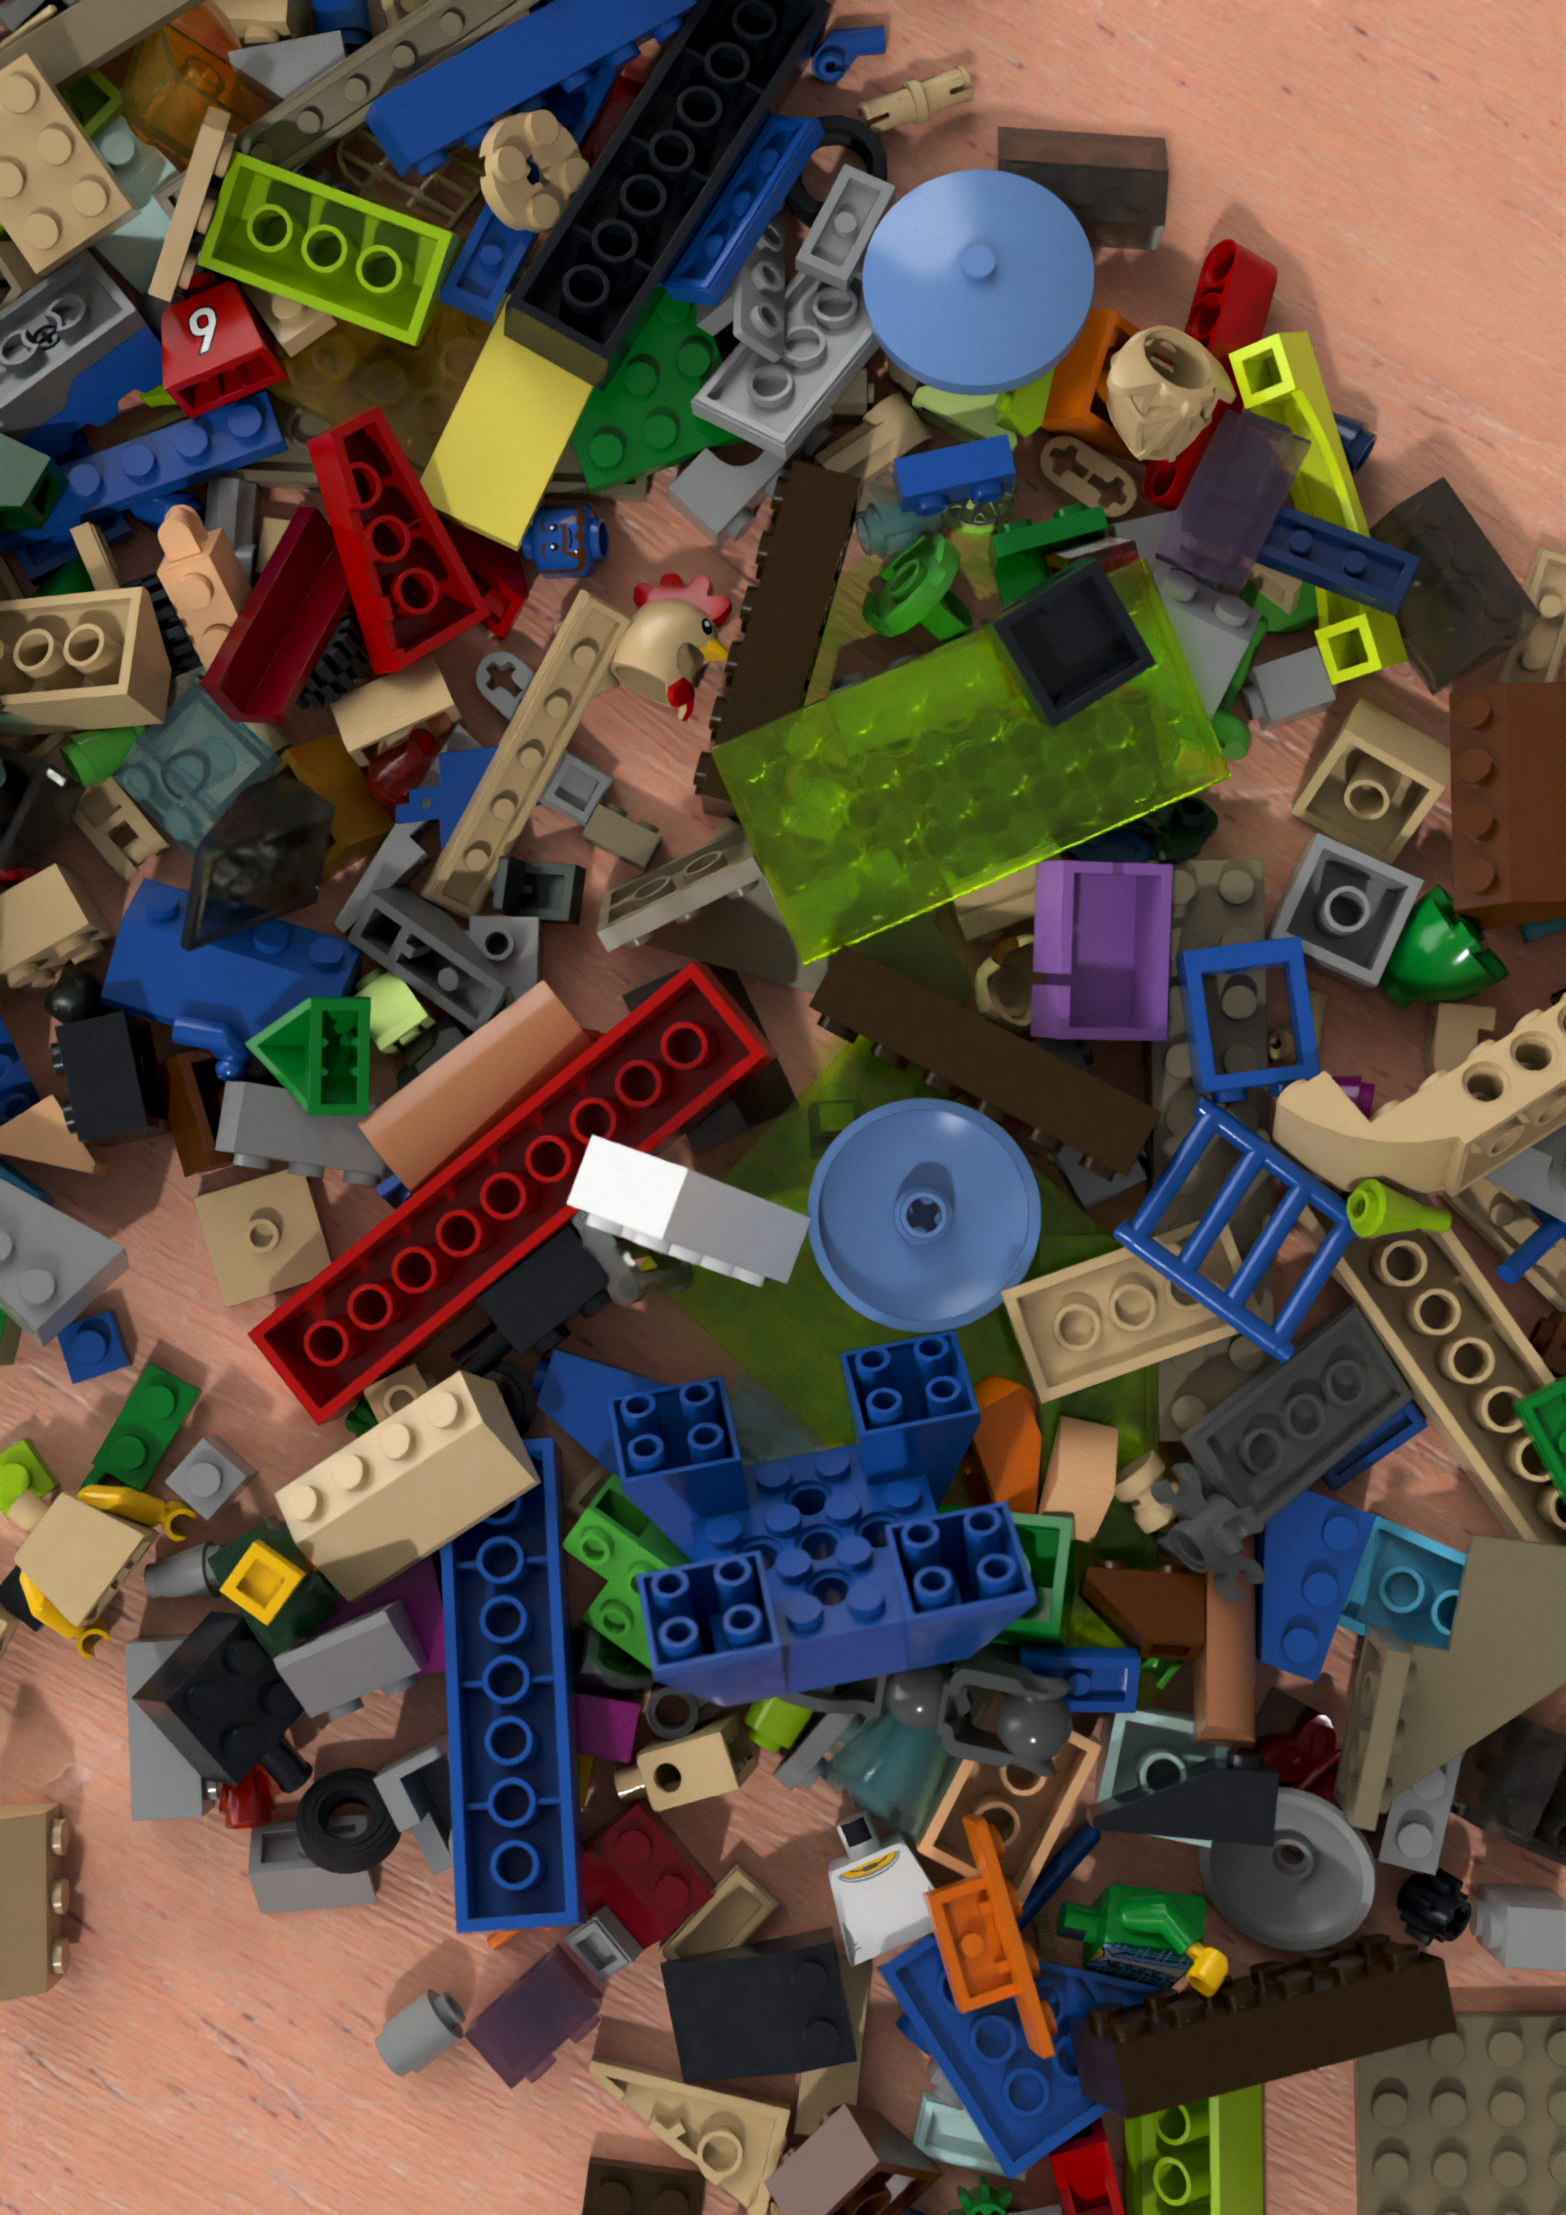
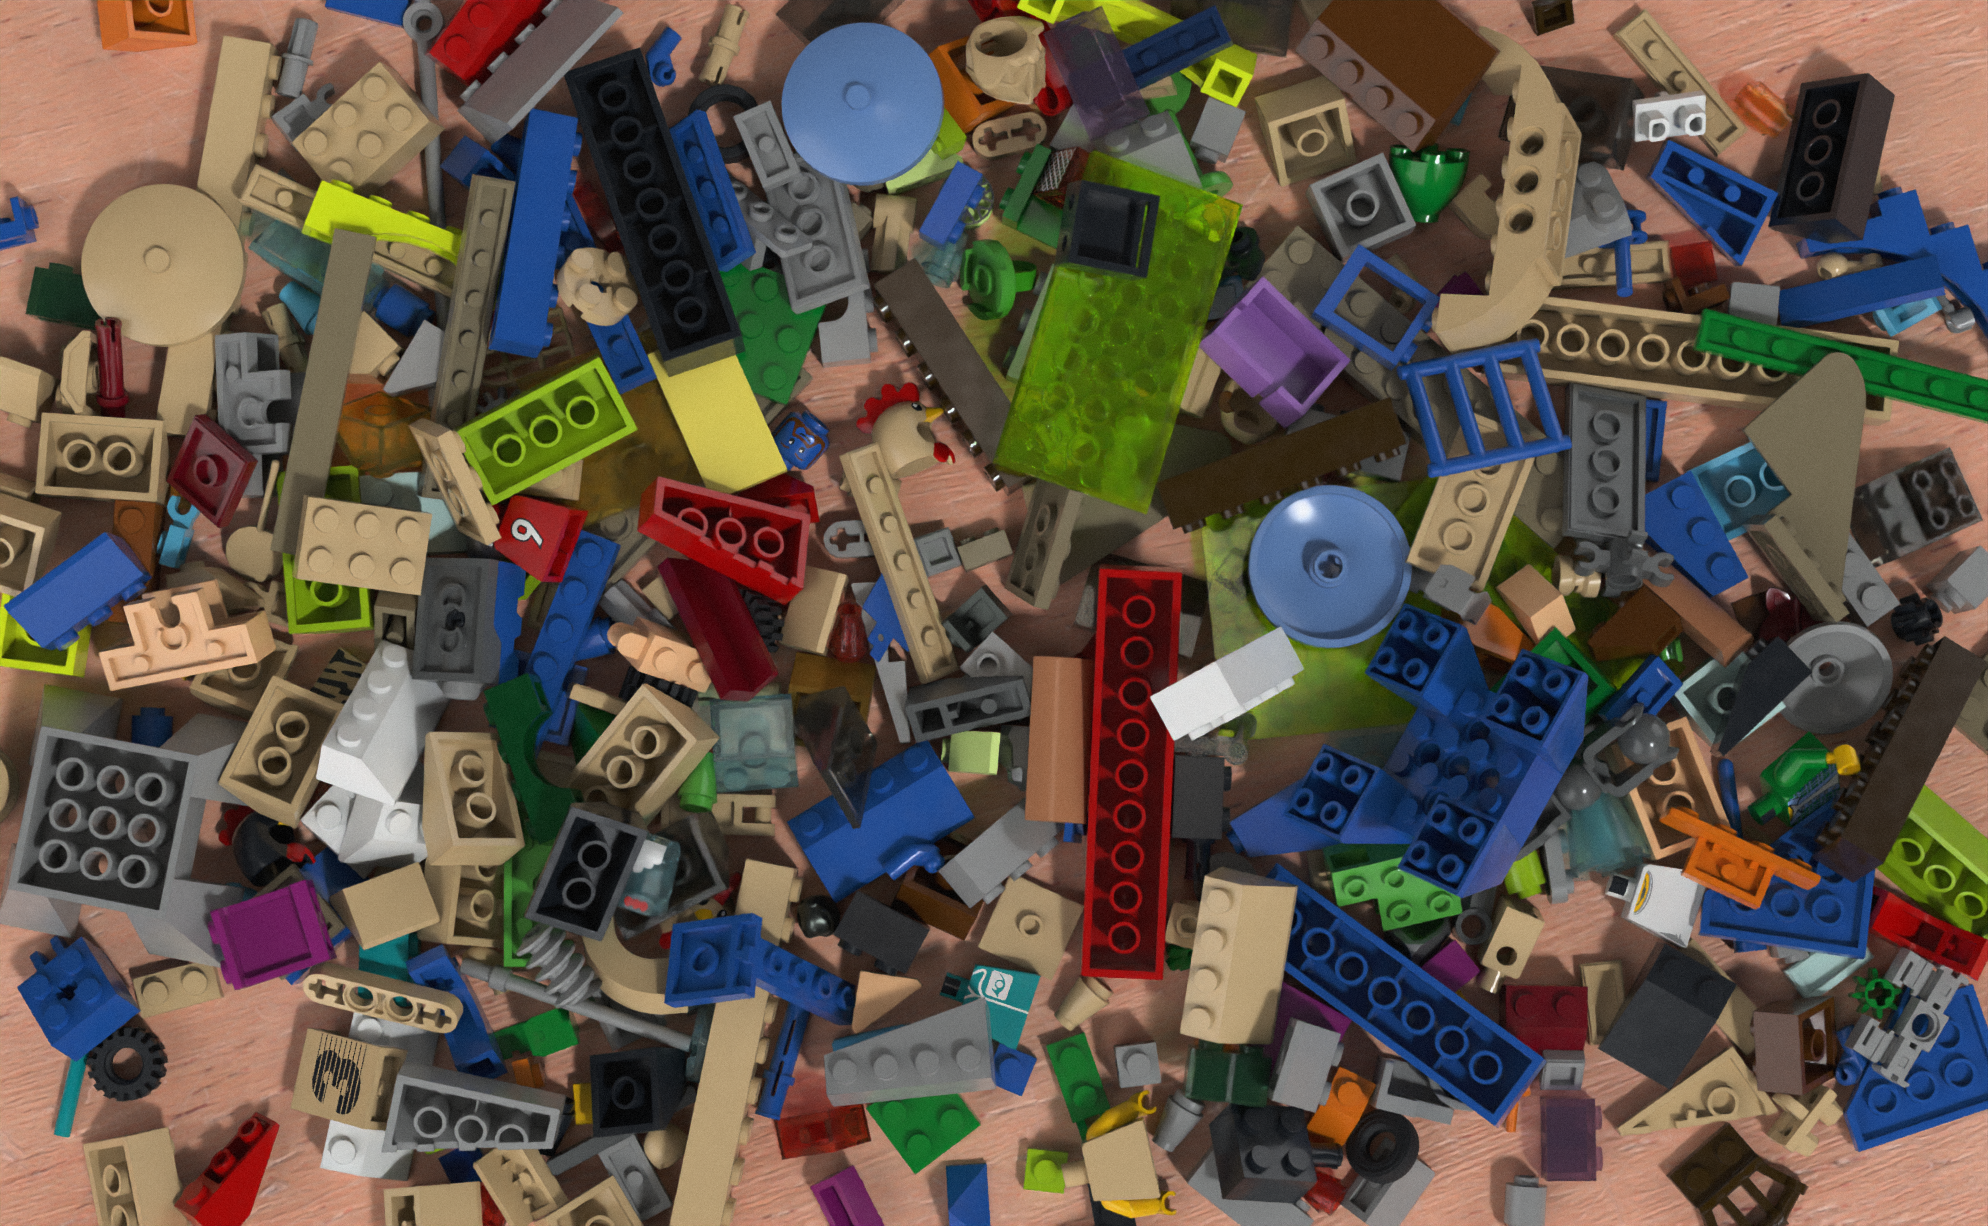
camera: 55 degrees left, 0 degrees up
(163, 1266) = (1006, 994): none -> teal torso
(230, 1362) = (1083, 1001): none -> tan cone
(262, 1582) = (1223, 1075): yellow tile -> none
(321, 1054) = (973, 806): green slope -> none
(358, 1740) = (1343, 1108): none -> orange slope
(1009, 1368) = (1451, 591): none -> light grey piece
(1380, 1210) = (1536, 328): lime cone -> none

